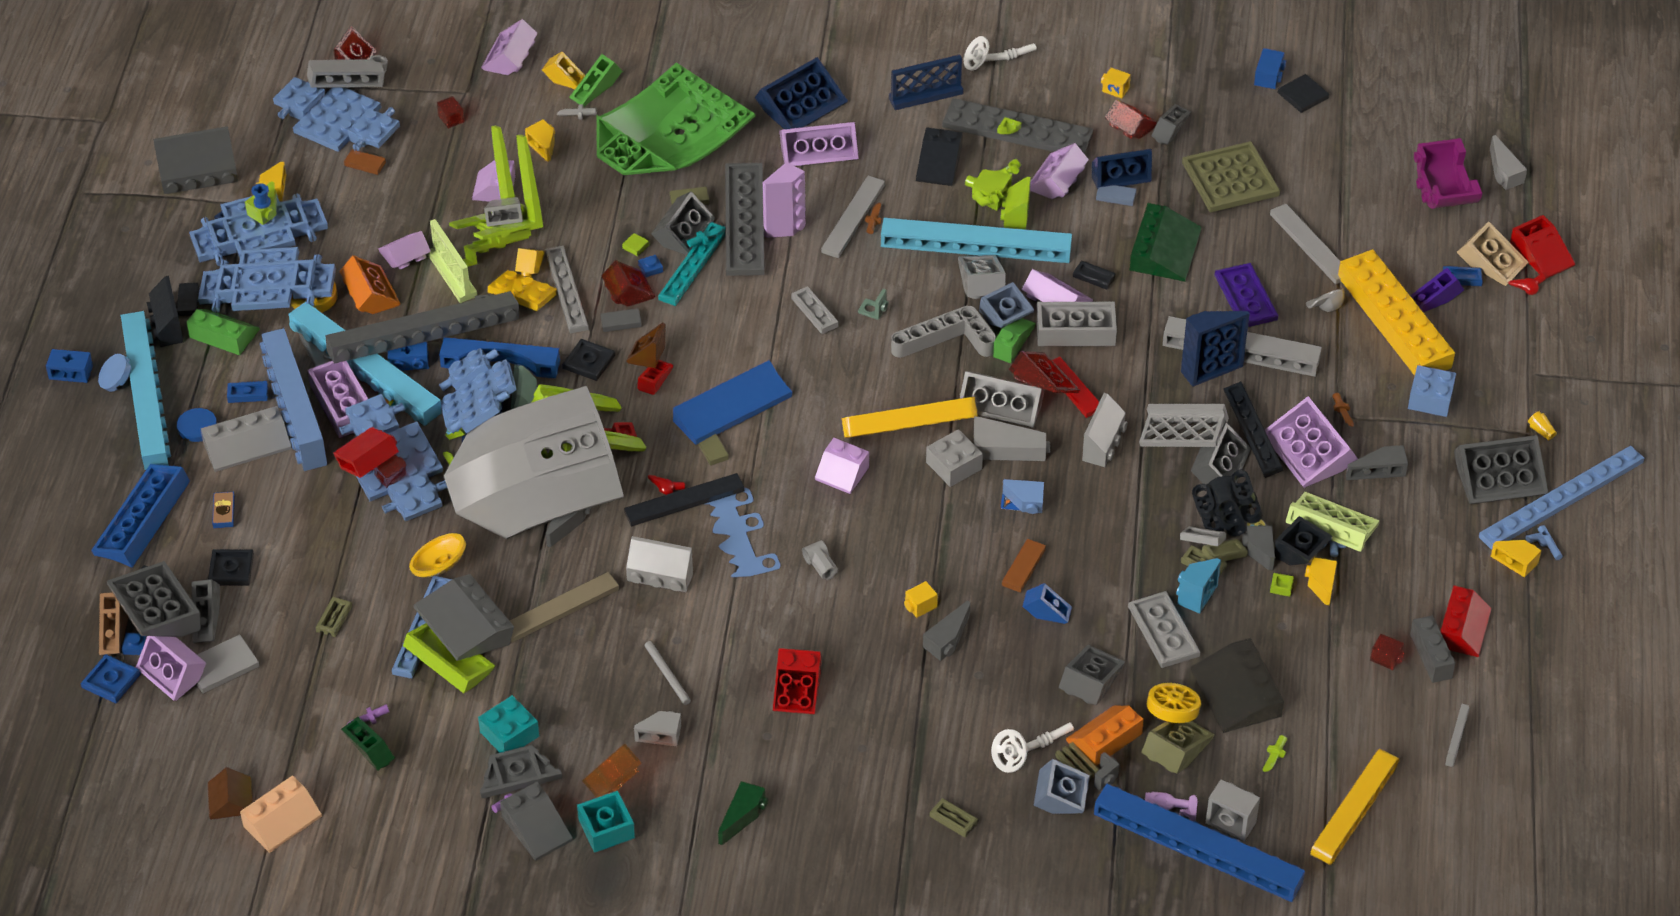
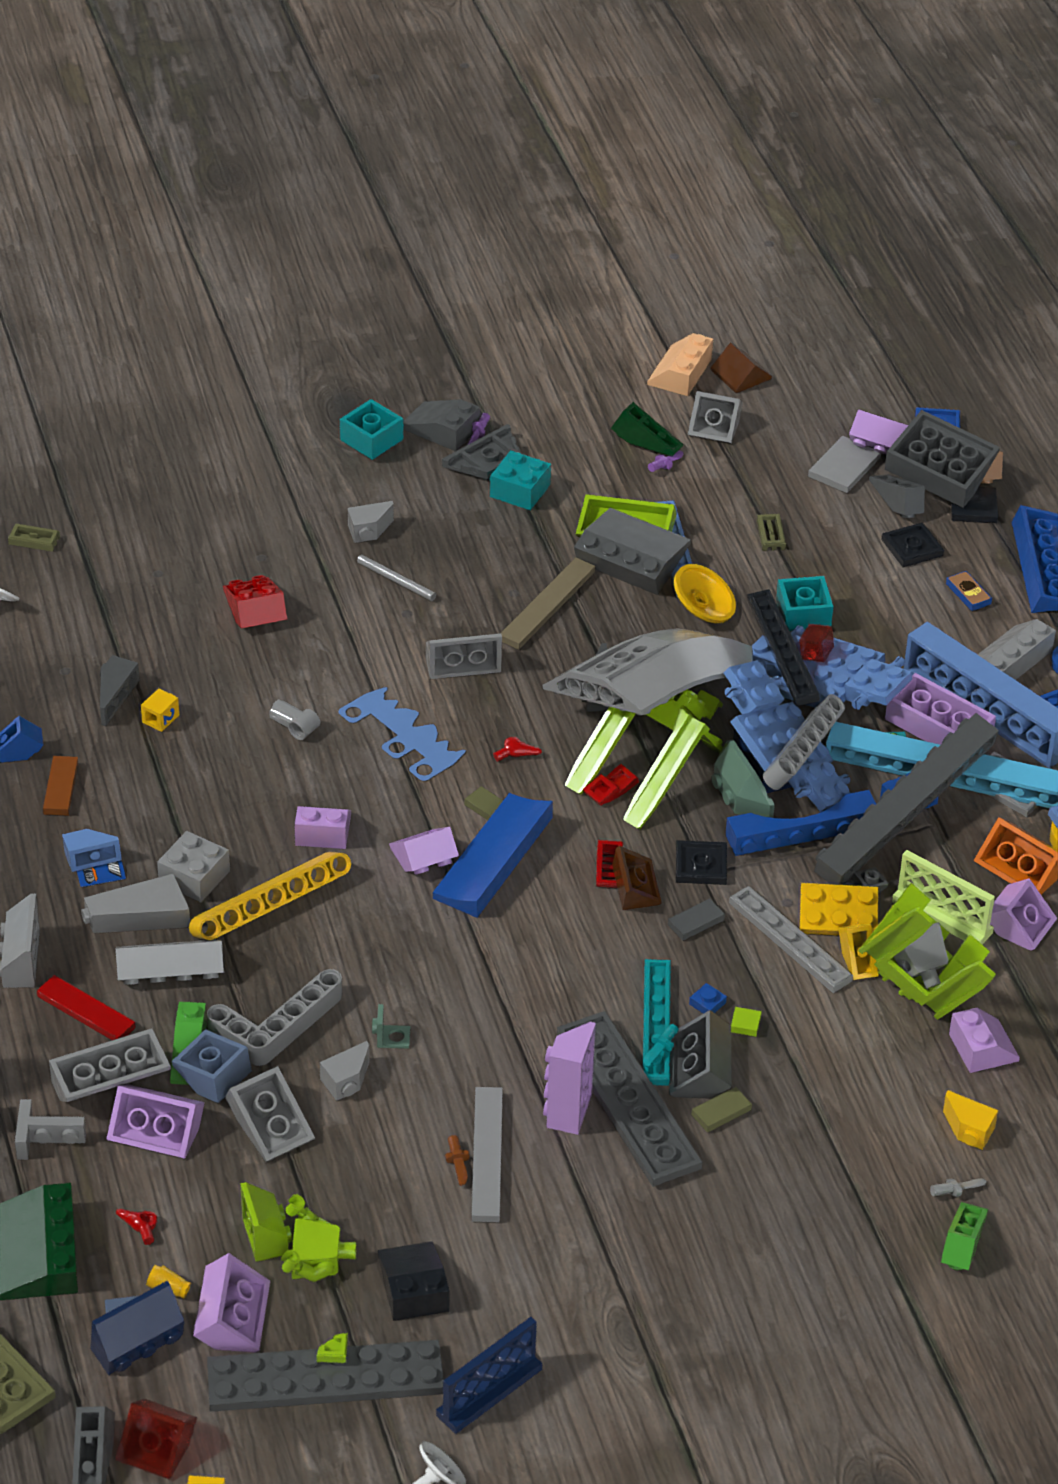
camera: 155 degrees right, 5 degrees down
(293, 742) = (715, 417): none -> light grey slope
(365, 524) = (804, 601): none -> teal brick
(366, 452) = (848, 630): red brick -> none
(416, 480) = (783, 648): none -> black tile
(467, 376) = (803, 742): none -> light grey beam
(563, 71) = (1020, 1233): yellow slope -> none
(613, 772) = (389, 457): clear orange brick -> none
(627, 284) = (714, 956): clear red slope -> none
(642, 131) = (814, 1142): bright green wedge -> none
(684, 499) = (484, 741): black tile -> none
(742, 811) = (245, 480): dark green slope -> none
(780, 424) = (425, 849): none -> lavender slope
(801, 96) = (665, 1308): dark blue slope -> none
(814, 310) = (463, 1001): light grey plate -> none
(819, 144) = (596, 1241): lavender slope -> none
(917, 286) = (345, 1071): none -> light grey slope
(976, 240) = (299, 1161): medium azure brick -> none
(1041, 372) = (120, 979): clear red slope -> none
(1091, 199) = (161, 1274): none -> yellow cone
(1092, 241) = (141, 1222): none -> red animal
(1094, 275) = (118, 1174): black tile -> none
(1134, 309) = (45, 1129): none -> light grey bracket

